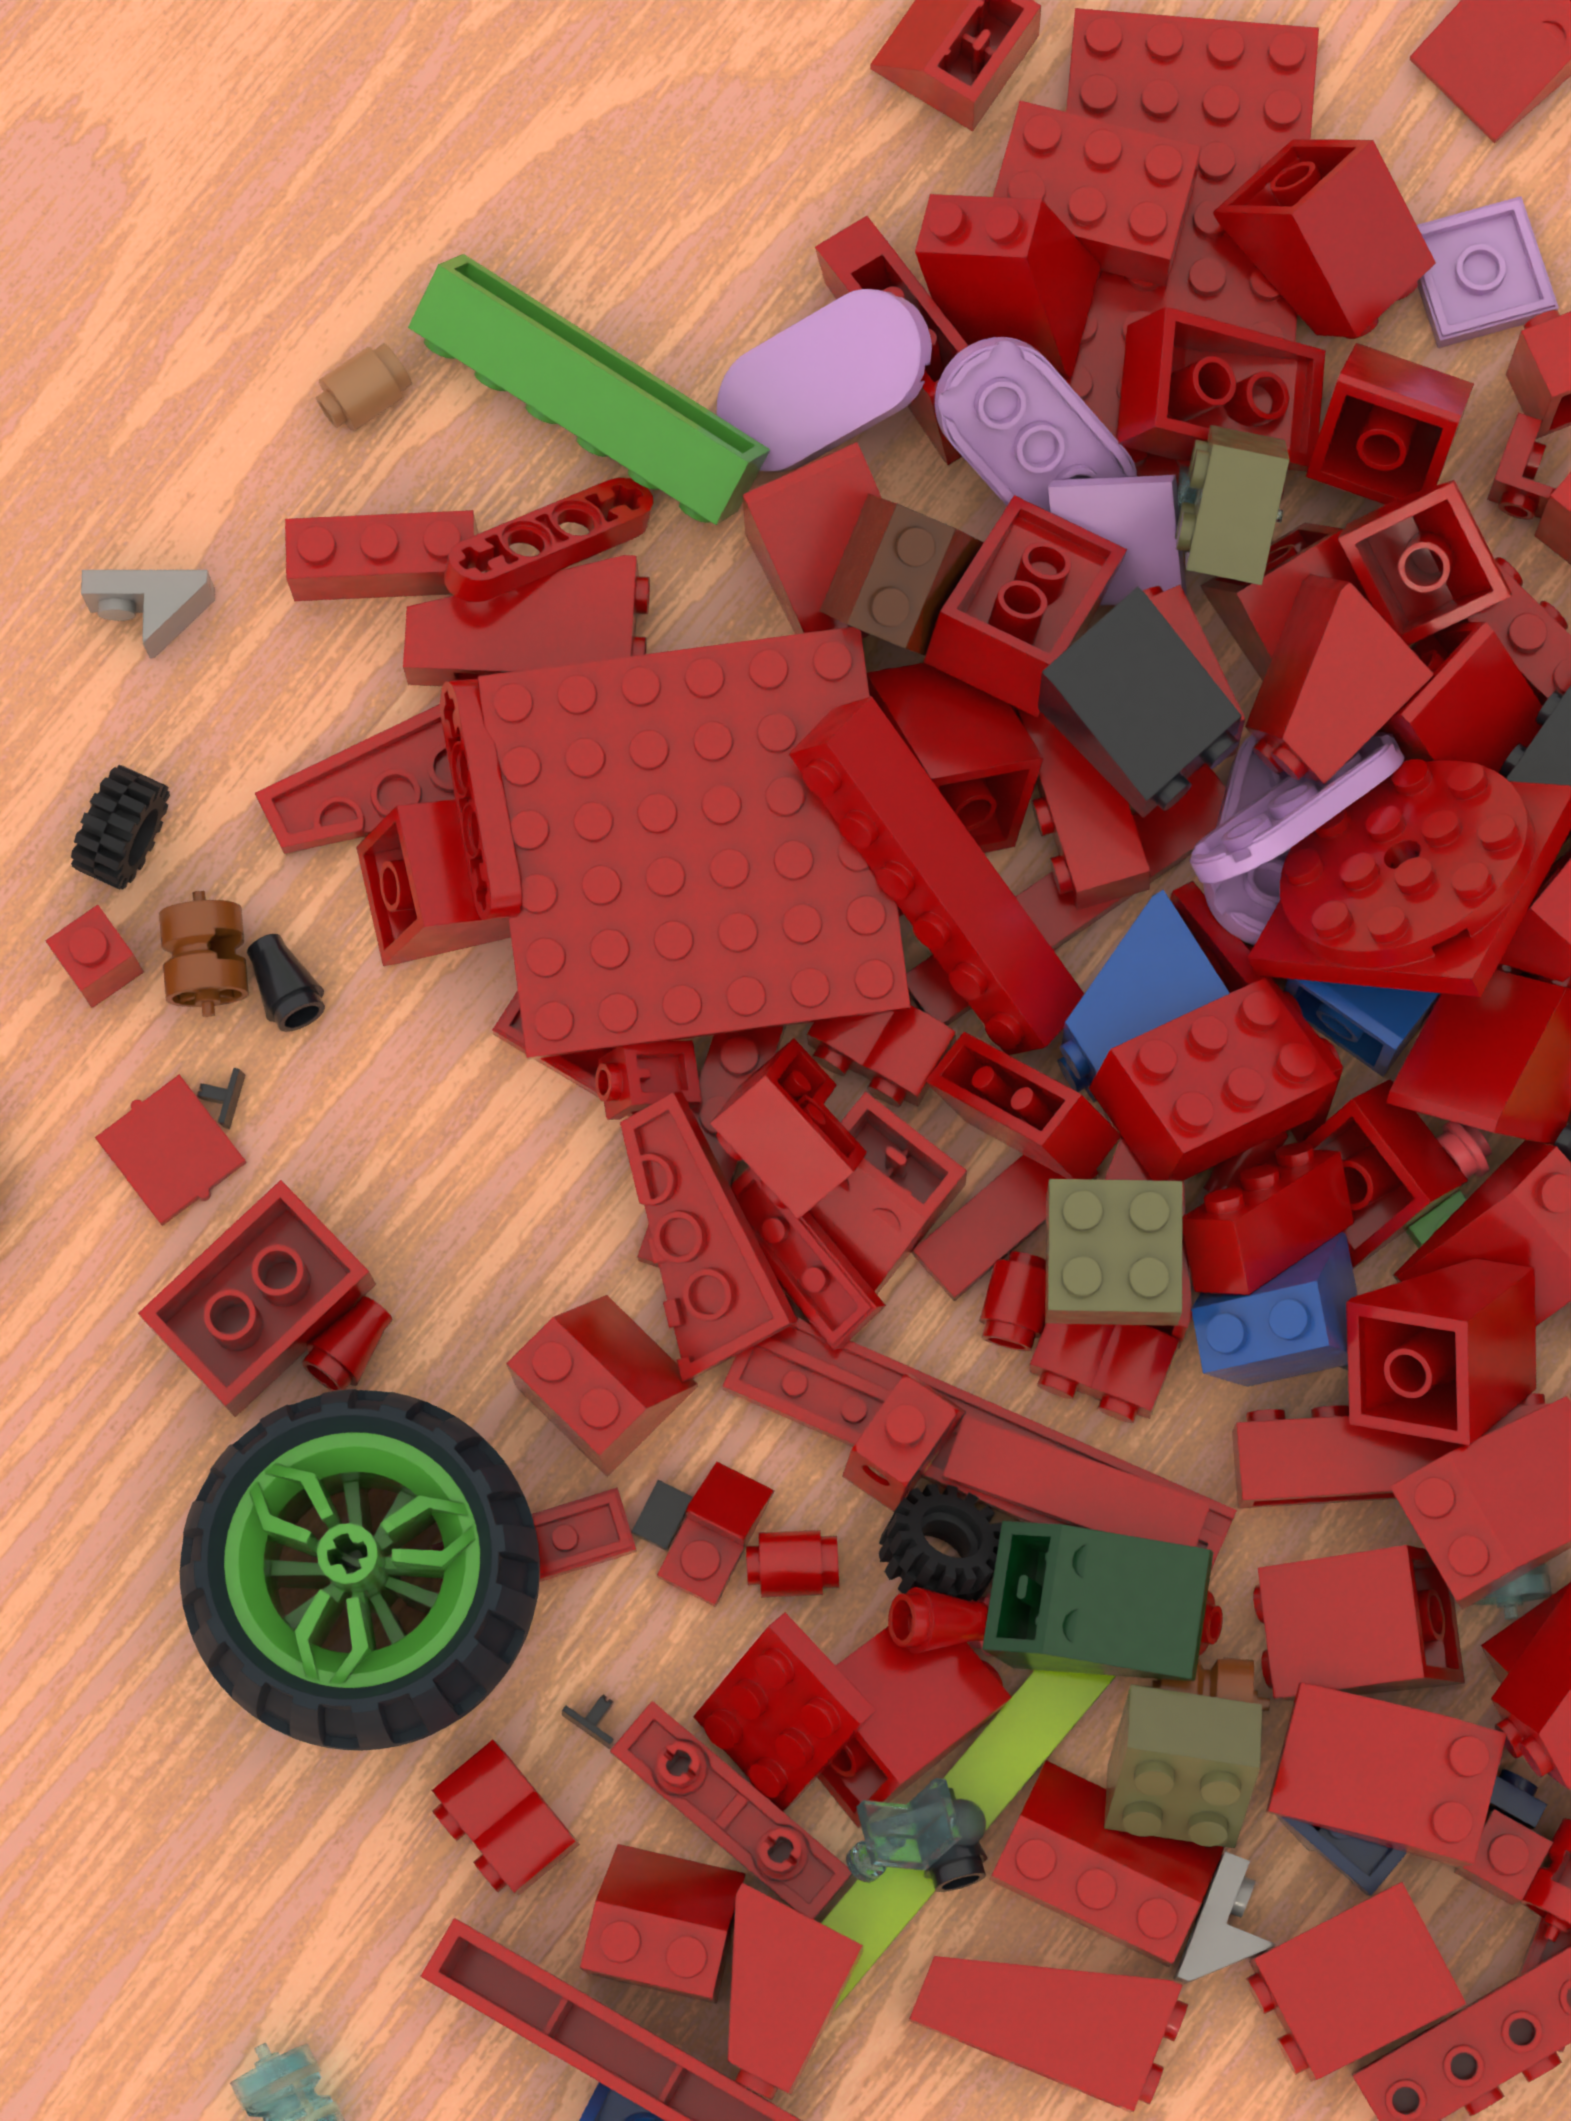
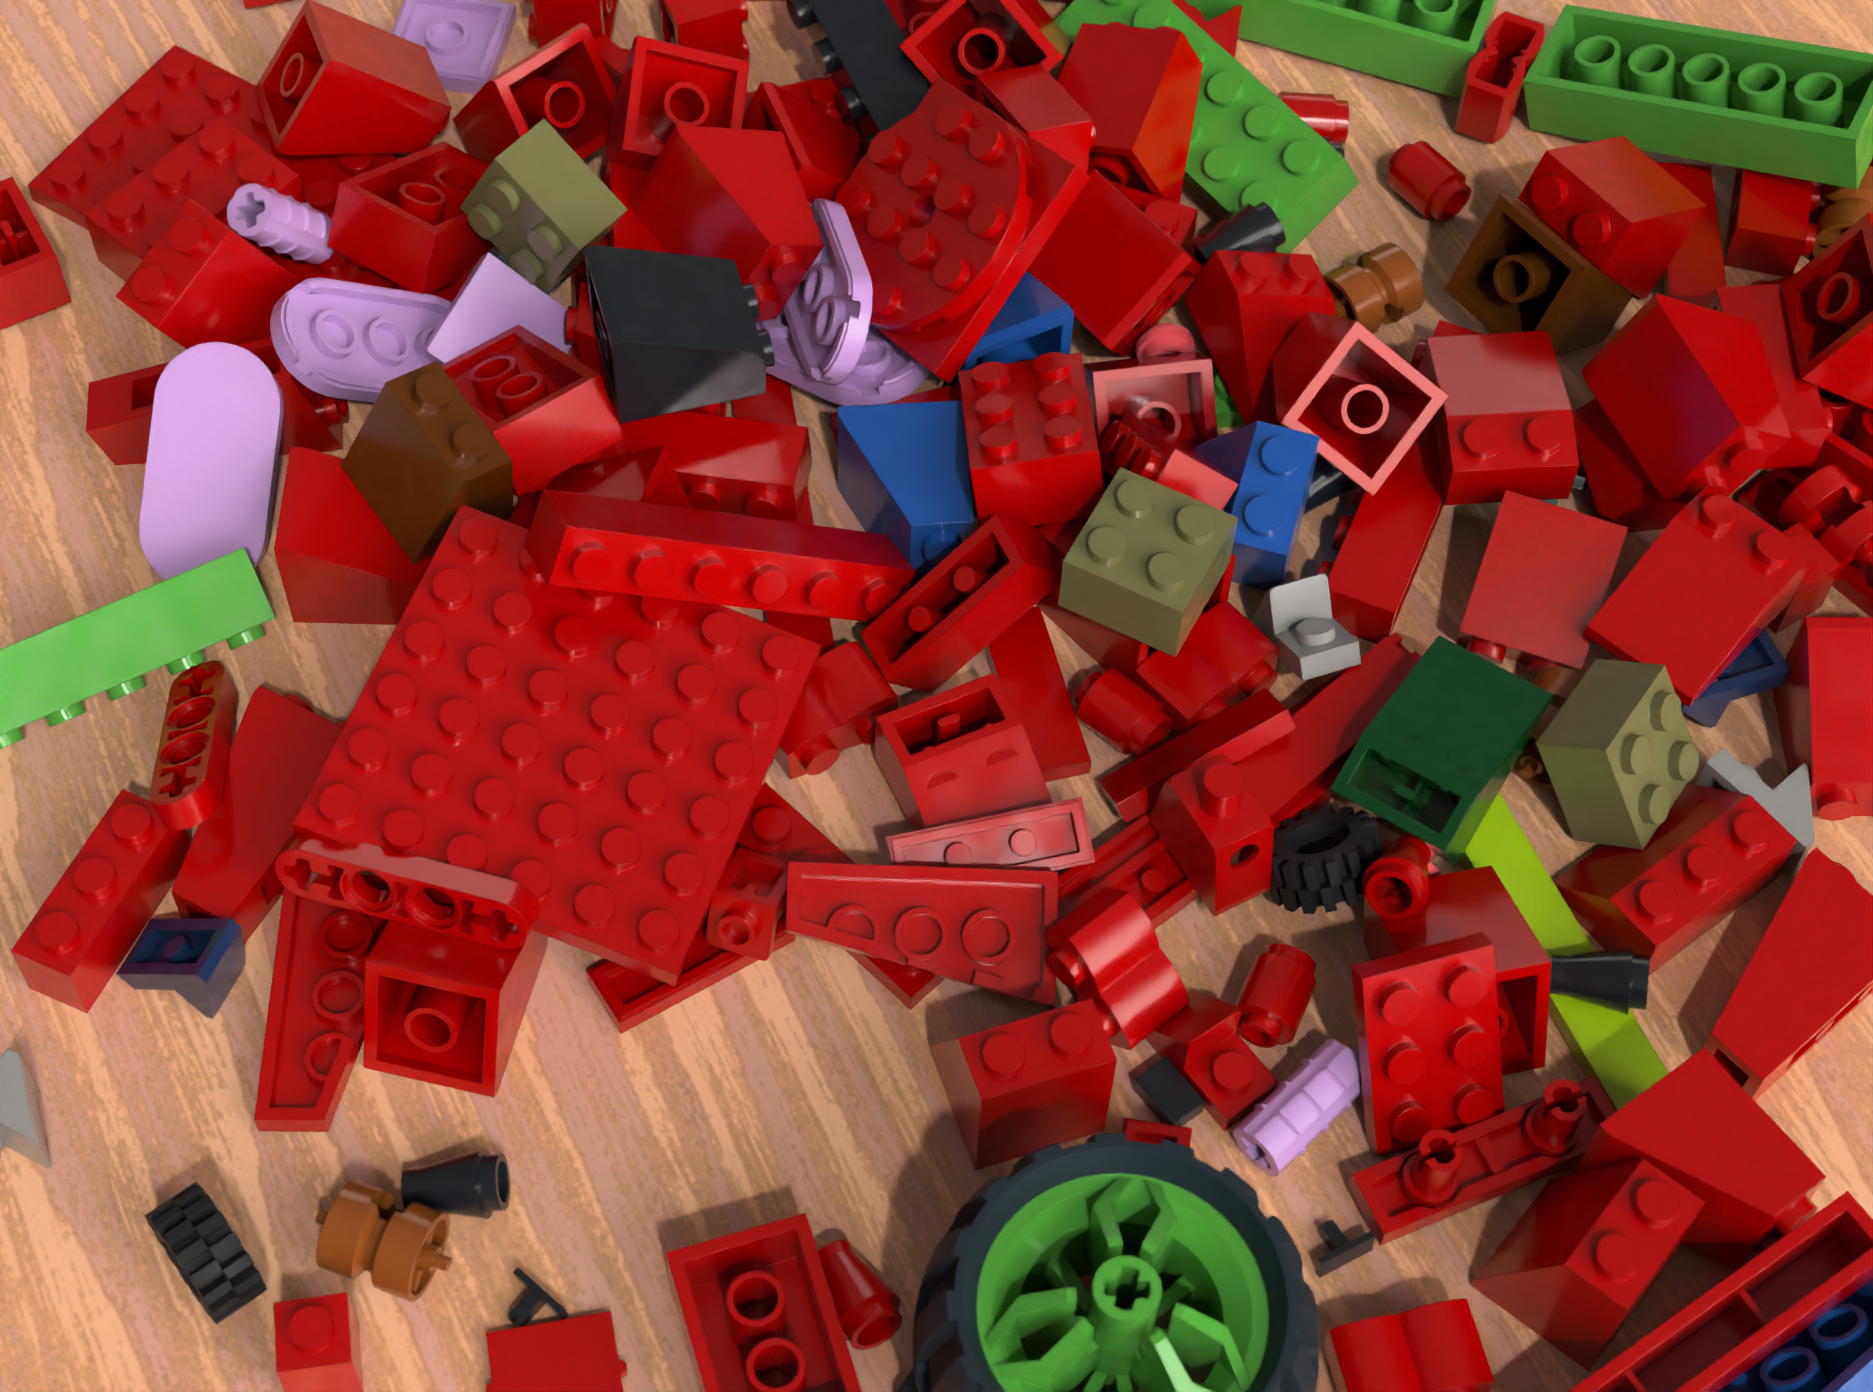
camera: 70 degrees left, 20 degrees down
(362, 652) = (189, 956): none -> dark blue slope
(692, 1629) = (1300, 1108): none -> lavender axle
(734, 1416) = (1116, 960): none -> red brick
(787, 1132) = (862, 783): red brick -> none
(913, 1833) = (1588, 994): clear light blue piece -> none
(997, 1387) = (1232, 732): none -> red tile
(1108, 276) = (280, 223): none -> lavender axle
(1178, 1431) = (1302, 626): none -> light grey slope

